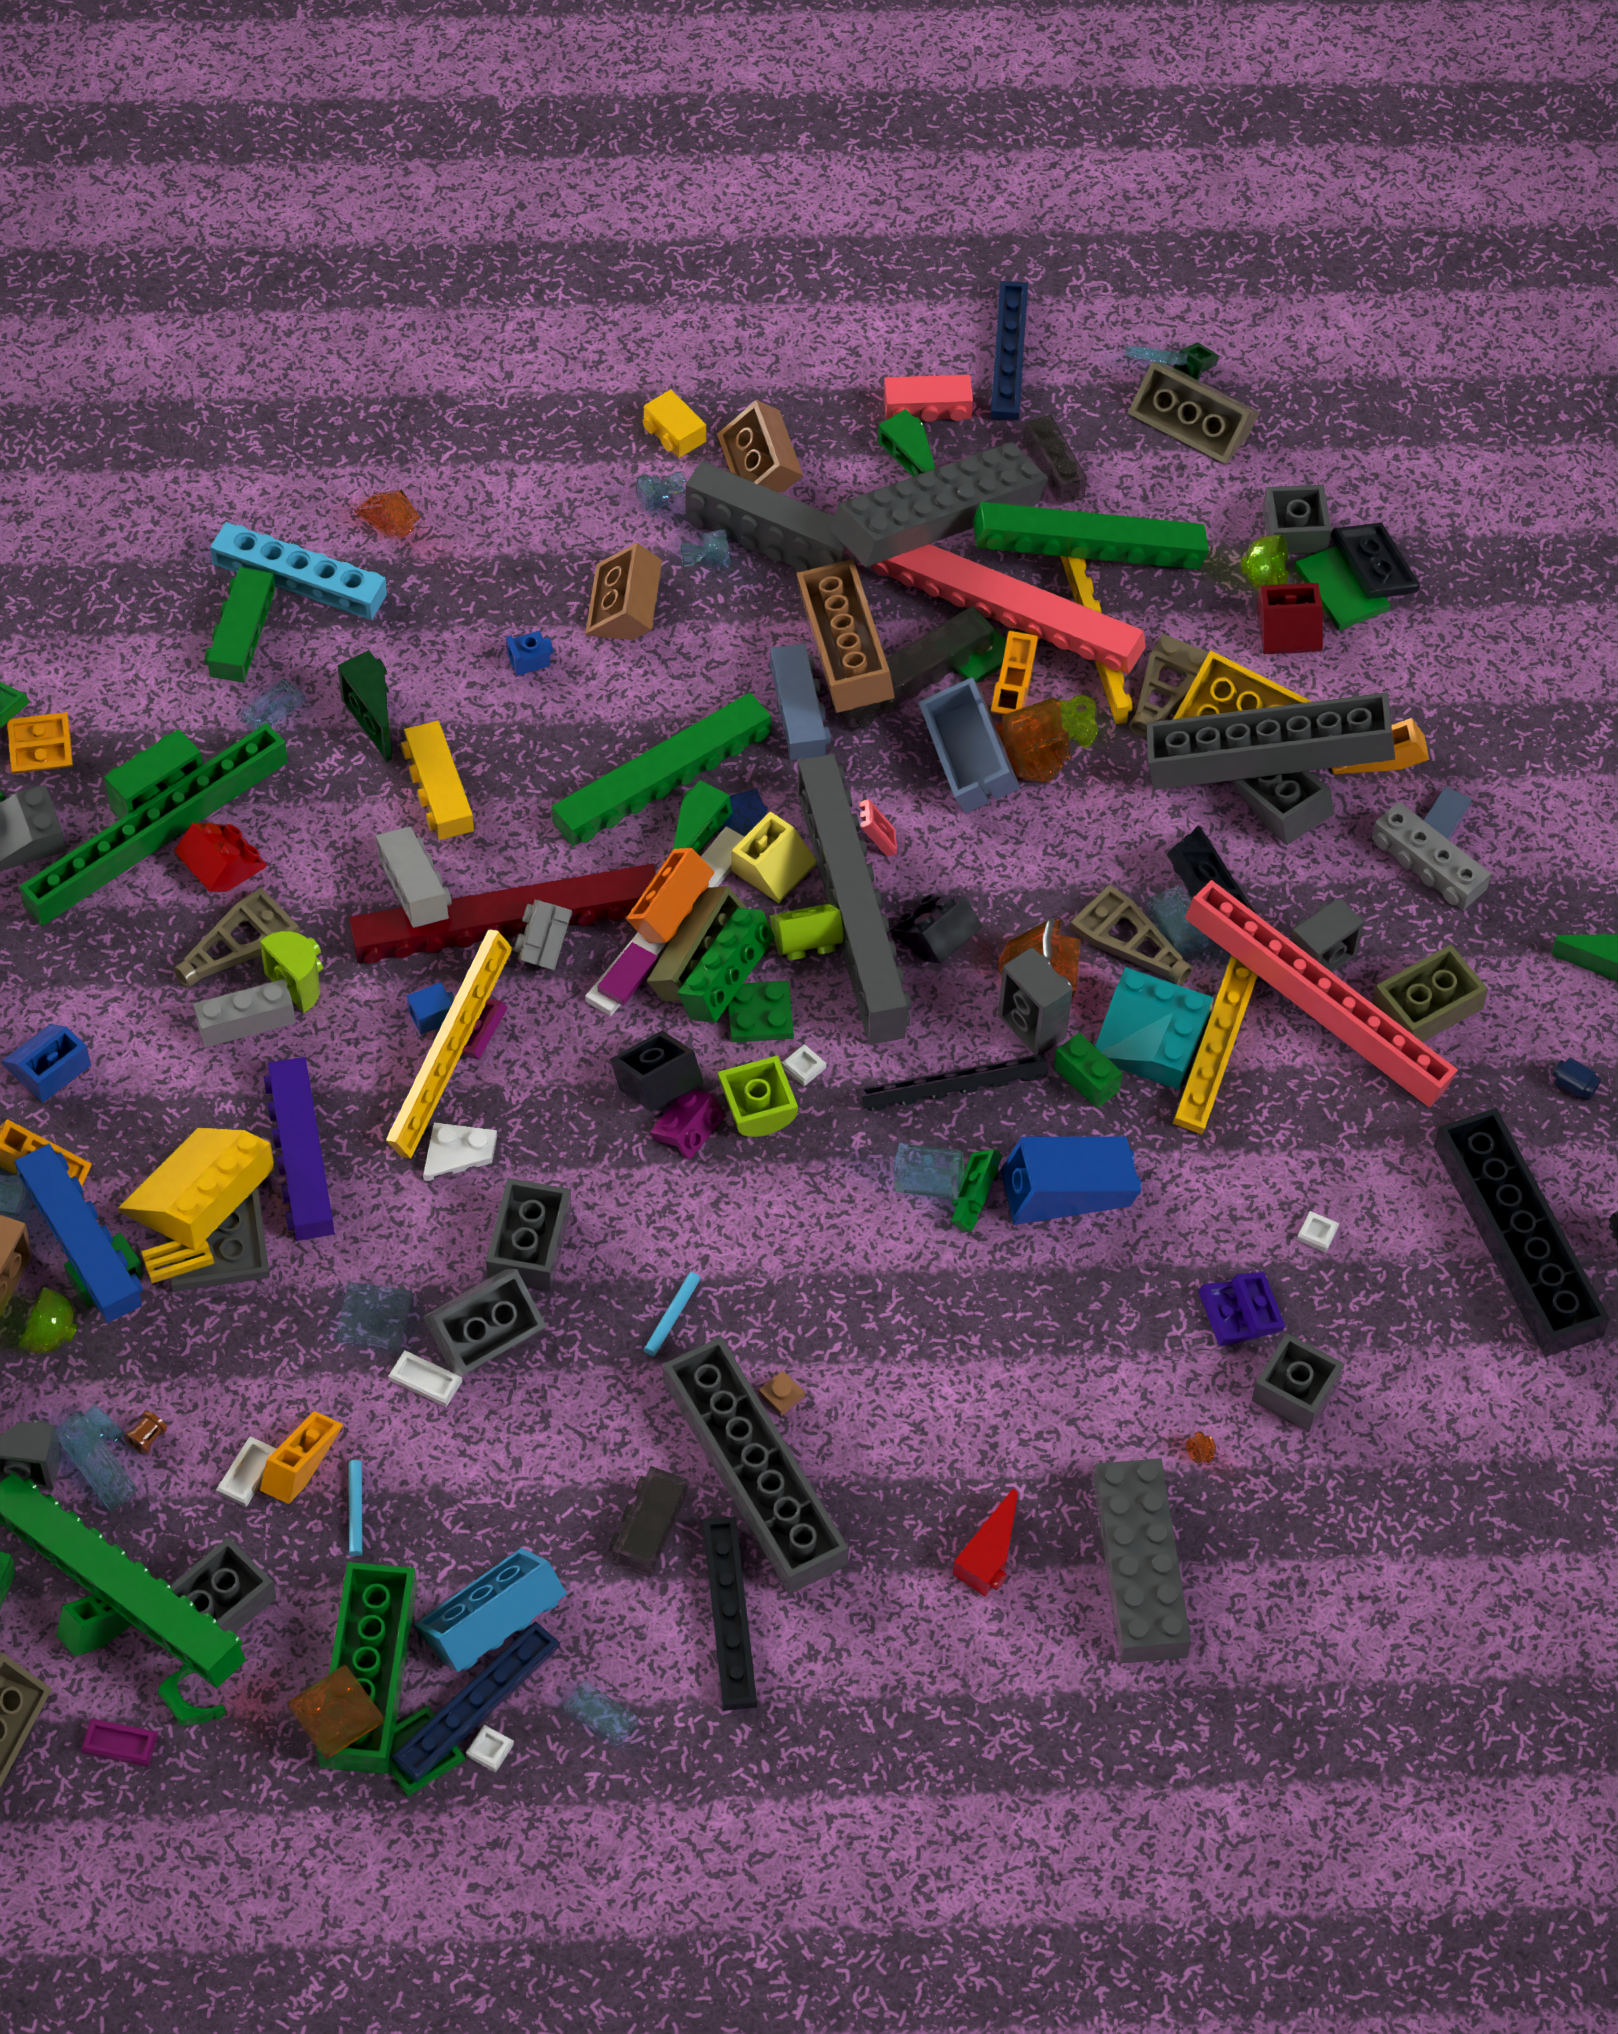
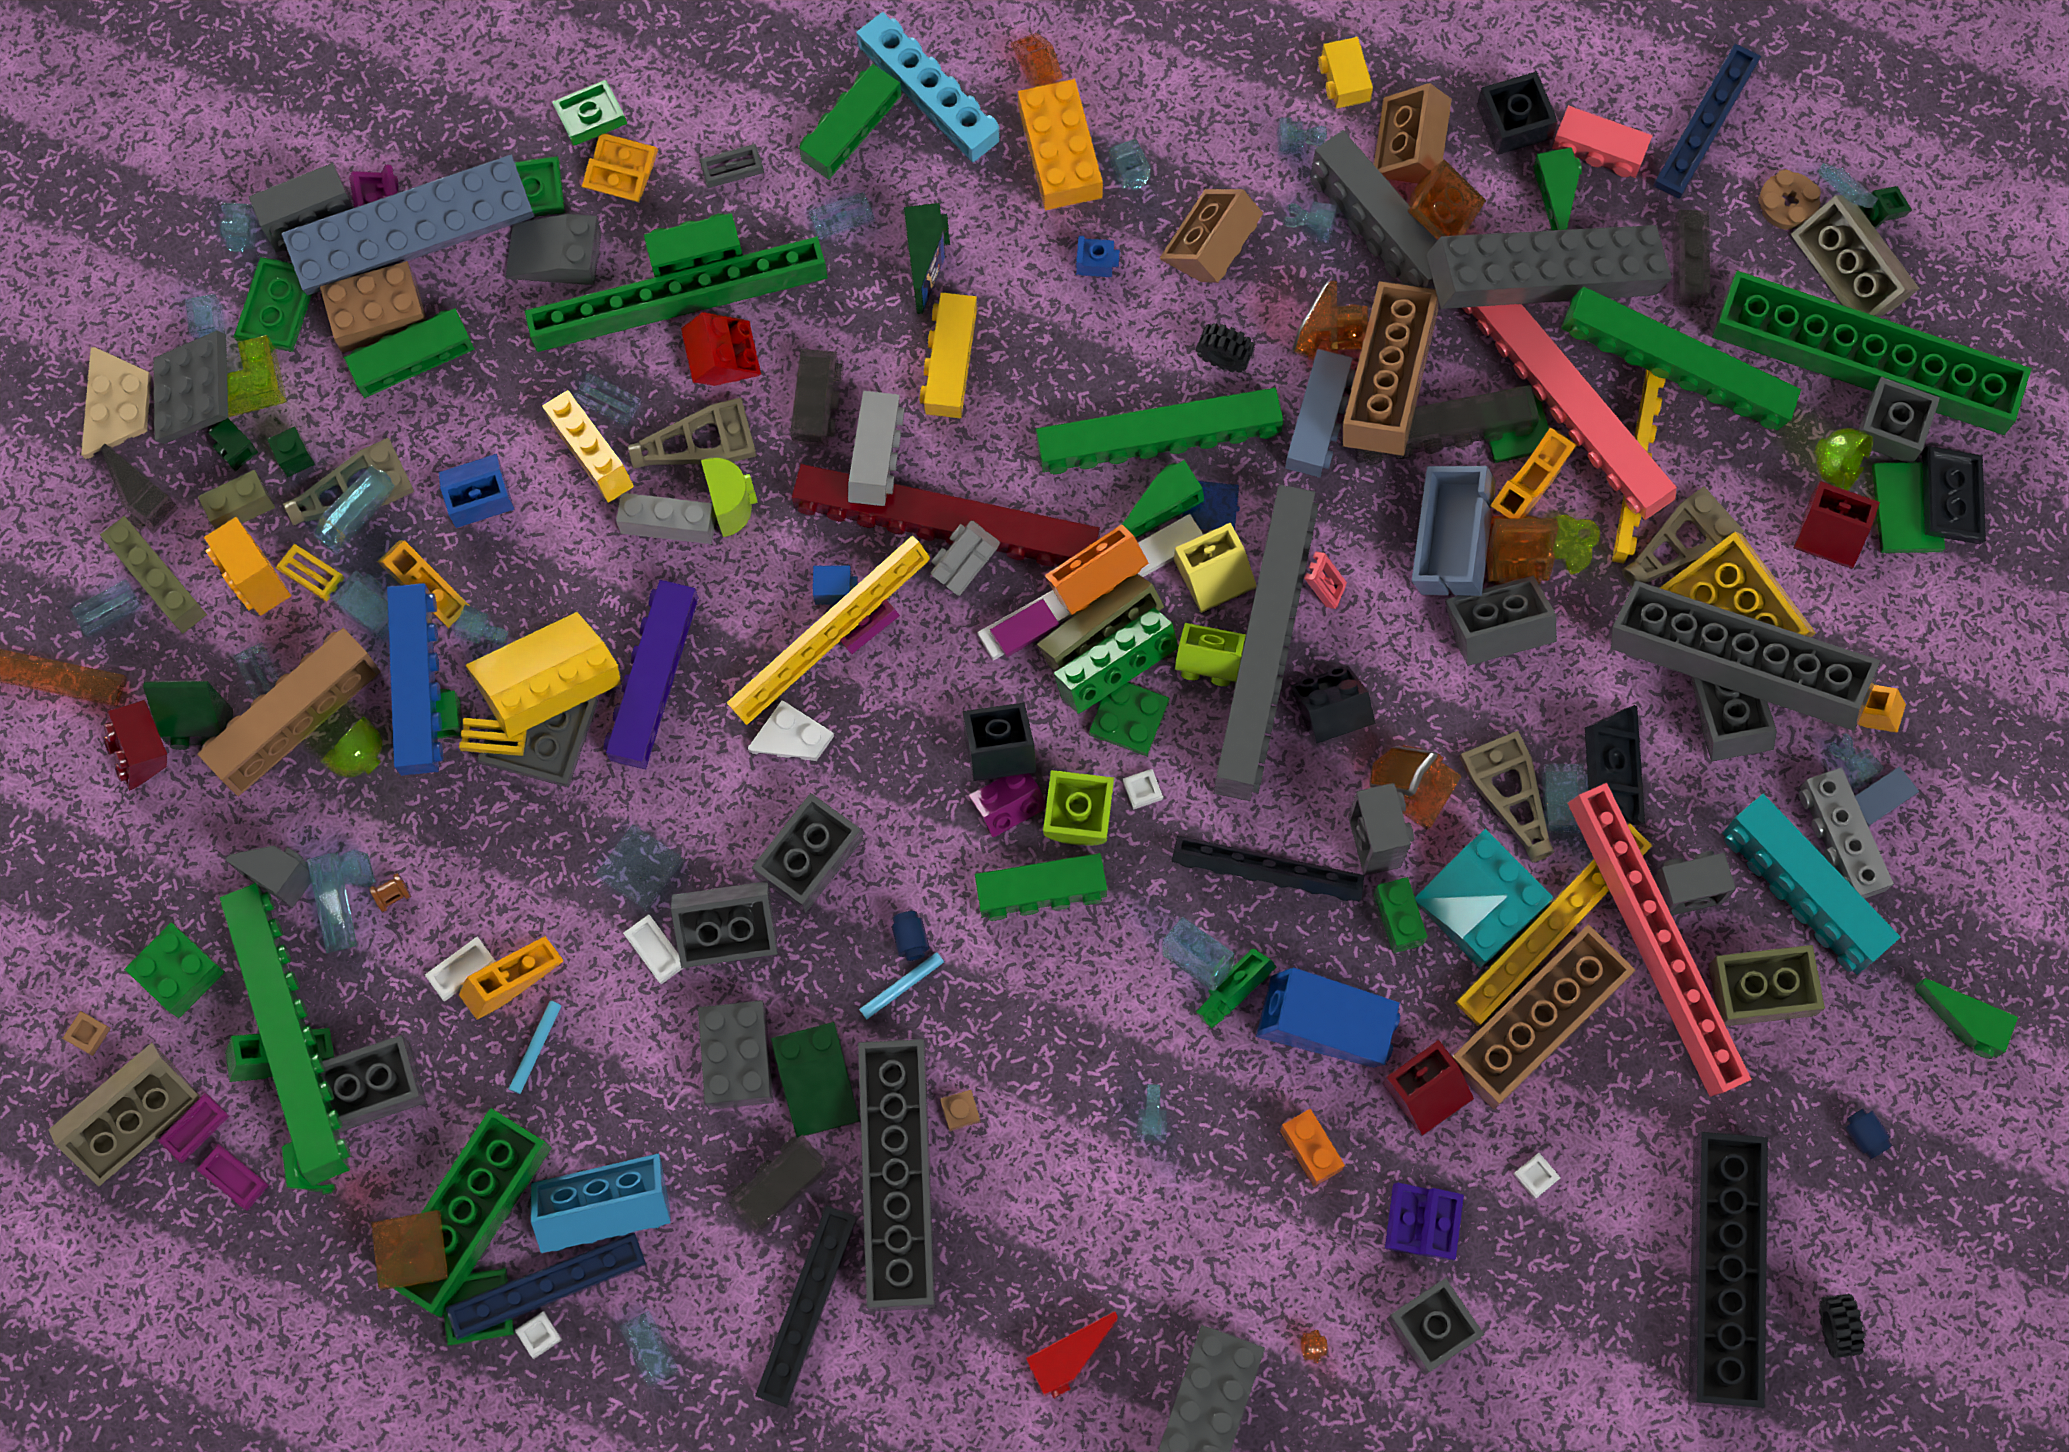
camera: 30 degrees right, 15 degrees up
(57, 1716) = (193, 1128): none -> magenta tile
(106, 1175) = (474, 625): none -> clear light blue piece
(131, 935) = (585, 388): none -> clear light blue tile
(140, 977) = (588, 446): none -> yellow brick
(149, 707) = (734, 175): none -> dark grey tile
(332, 861) = (816, 398): none -> clear smoke brick
(447, 572) = (1060, 144): none -> light orange brick
(519, 566) = (1129, 156): none -> clear light blue brick
(551, 1430) = (735, 1055): none -> dark grey brick
(635, 1419) = (815, 1079): none -> dark green slope
(658, 1267) = (910, 935): none -> dark blue brick
(687, 678) = (1225, 347): none -> black tyre
(756, 1177) = (1041, 886): none -> green brick
(775, 623) = (1330, 325): none -> clear orange piece
(819, 485) = (1445, 202): none -> clear orange slope
(843, 400) = (1517, 113): none -> black brick
(960, 1328) = (1152, 1121): none -> clear light blue piece
(1048, 803) = (1502, 620): none -> dark grey slope
(1111, 373) = (1785, 184): none -> medium nougat plate
(1113, 1287) = (1312, 1147): none -> orange brick
(1187, 1196) = (1429, 1088): none -> dark red slope
(1238, 473) = (1866, 347): none -> green brick
(1253, 1100) = (1541, 1016): none -> medium nougat brick
(1415, 796) = (1859, 767): none -> clear light blue piece
(1423, 901) = (1809, 885): none -> teal brick

